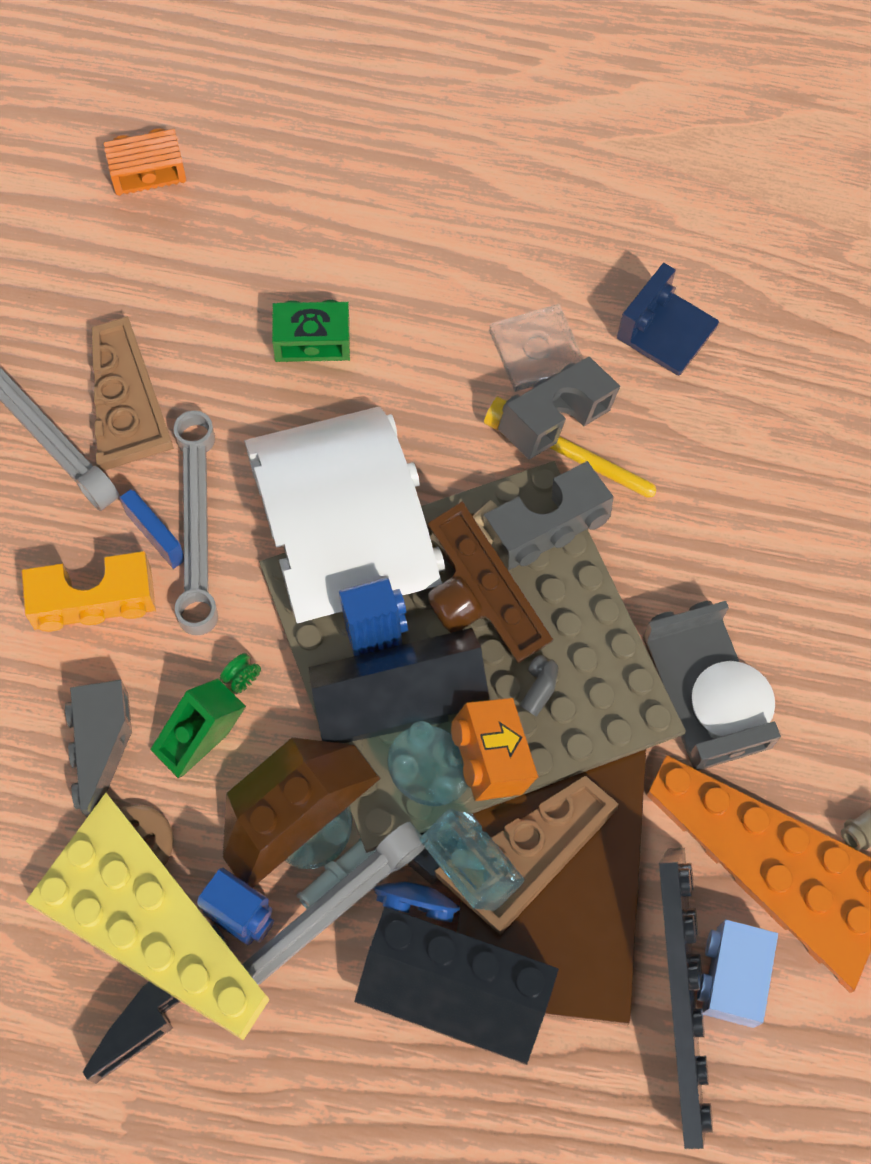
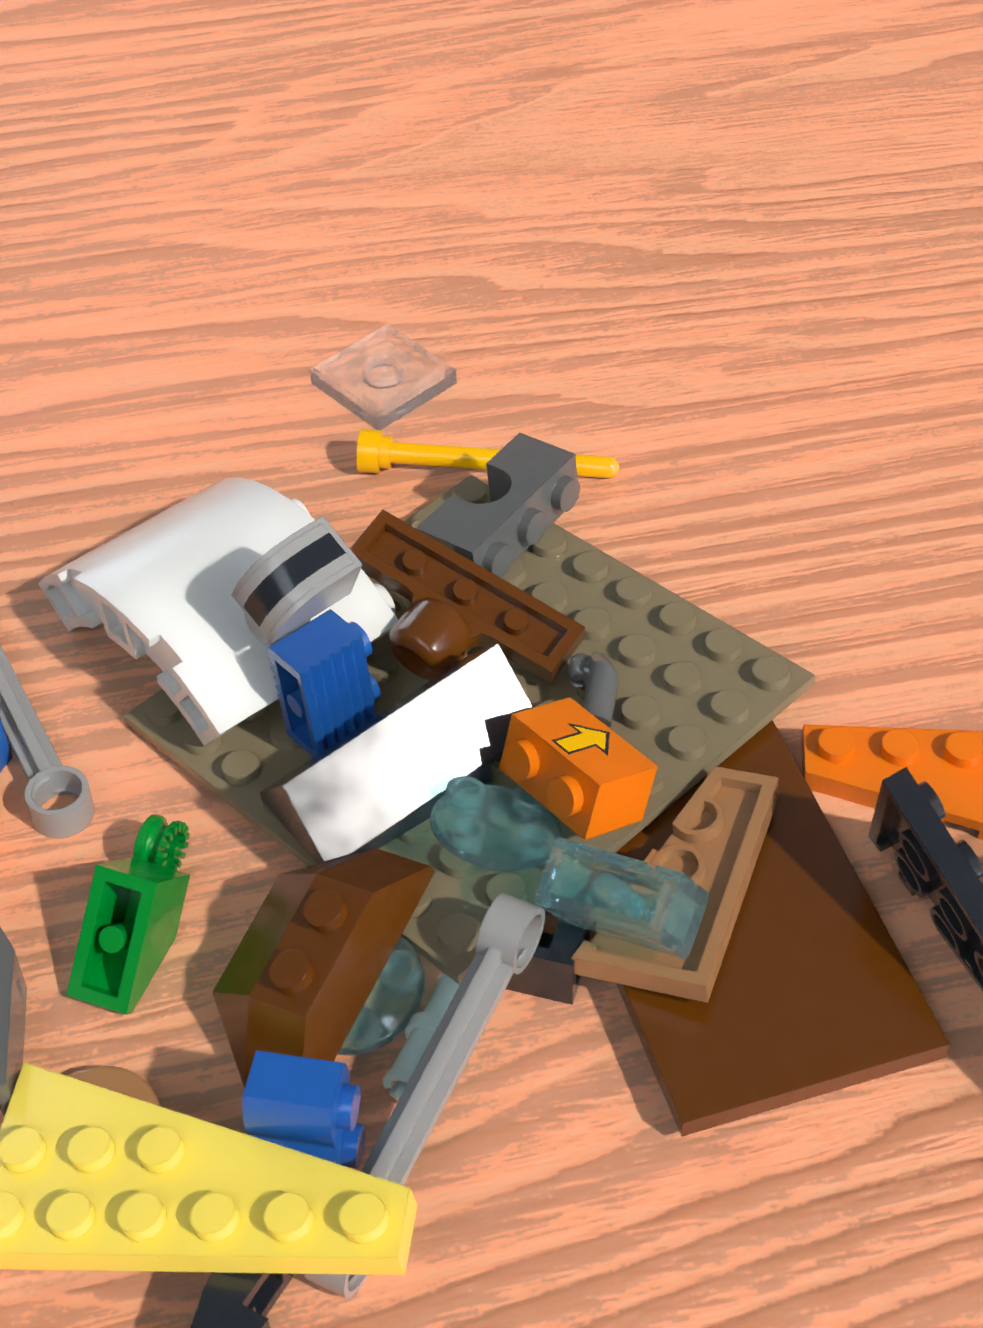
camera: 20 degrees left, 20 degrees down
(311, 331) = (75, 445): green brick -> none
(370, 559) = (296, 581): none -> light grey brick
(402, 895) = (563, 1002): blue dish -> none
(456, 985) = (683, 1081): black slope -> none
(535, 418) = (430, 418): dark grey arch -> none
(665, 324) = (530, 304): dark blue bracket -> none
(681, 651) = (853, 664): dark grey panel -> none
(732, 698) = (851, 636): white dish -> none

